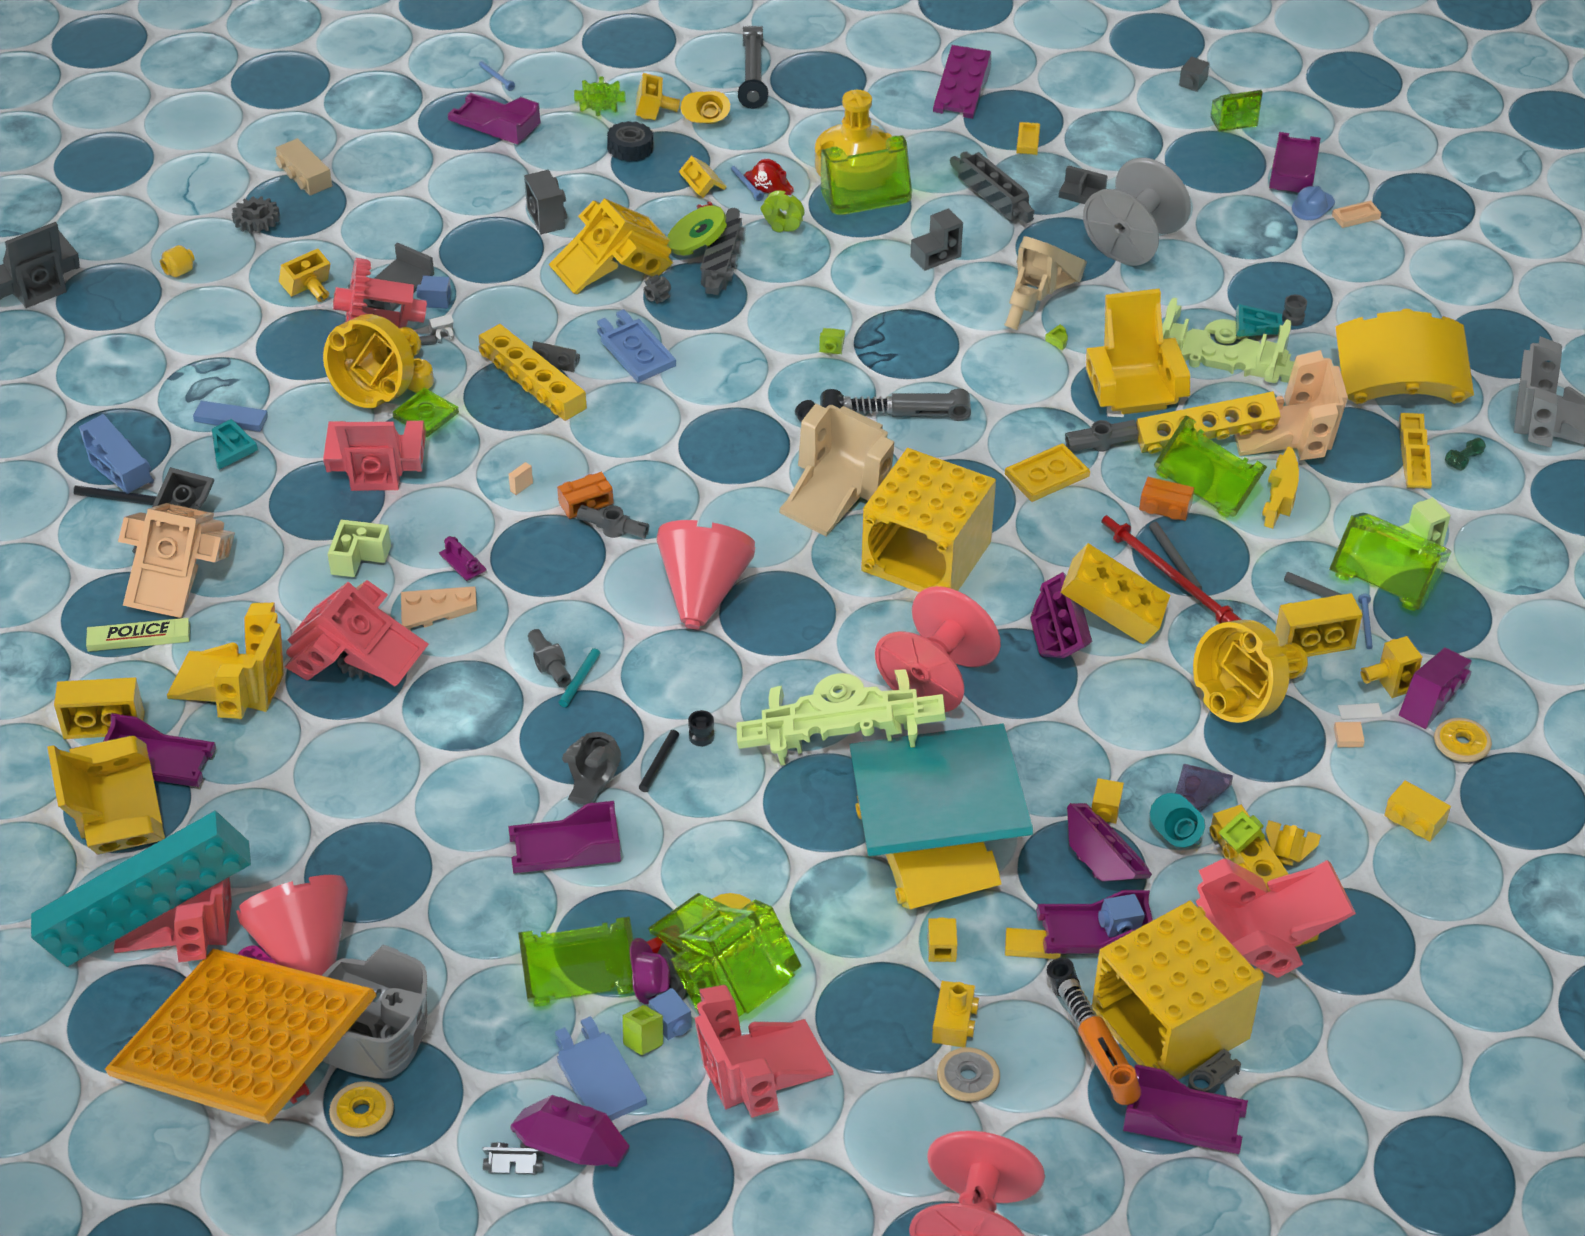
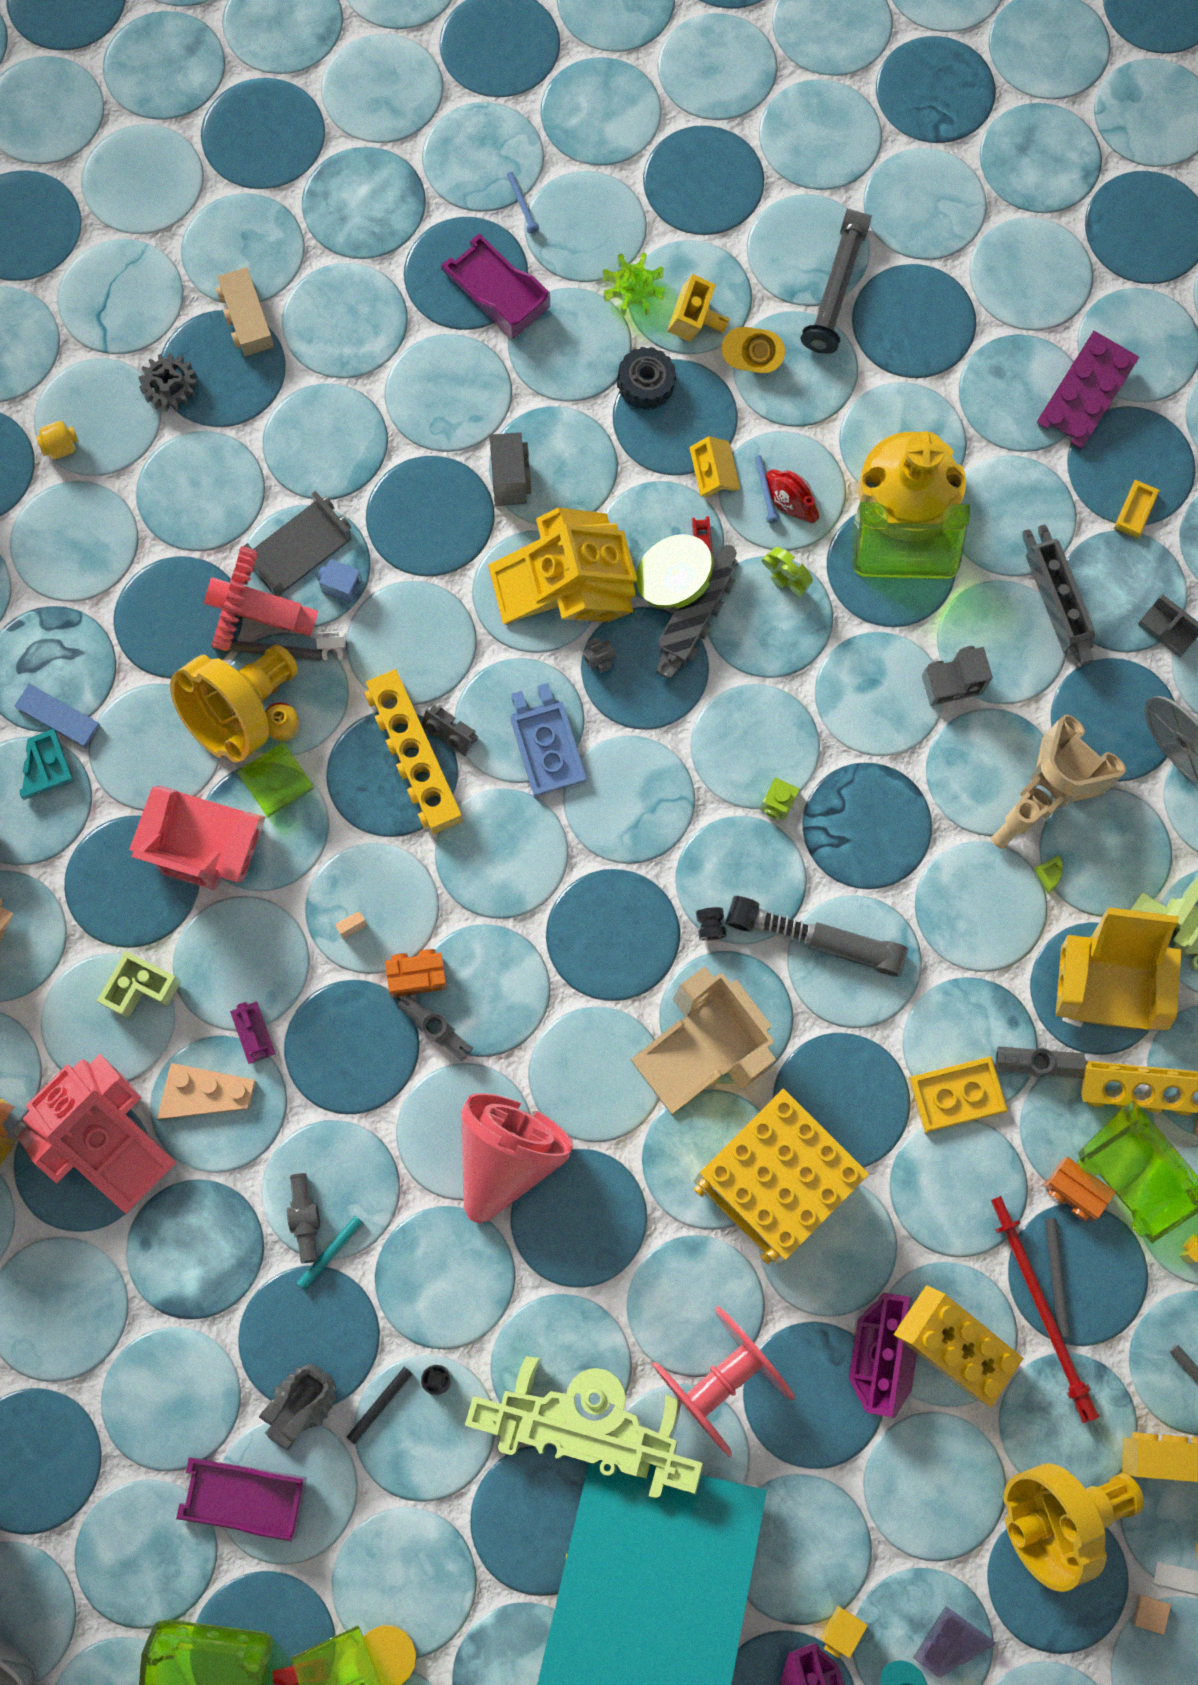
camera: 15 degrees right, 30 degrees up
(306, 273) = (197, 510): yellow brick -> none

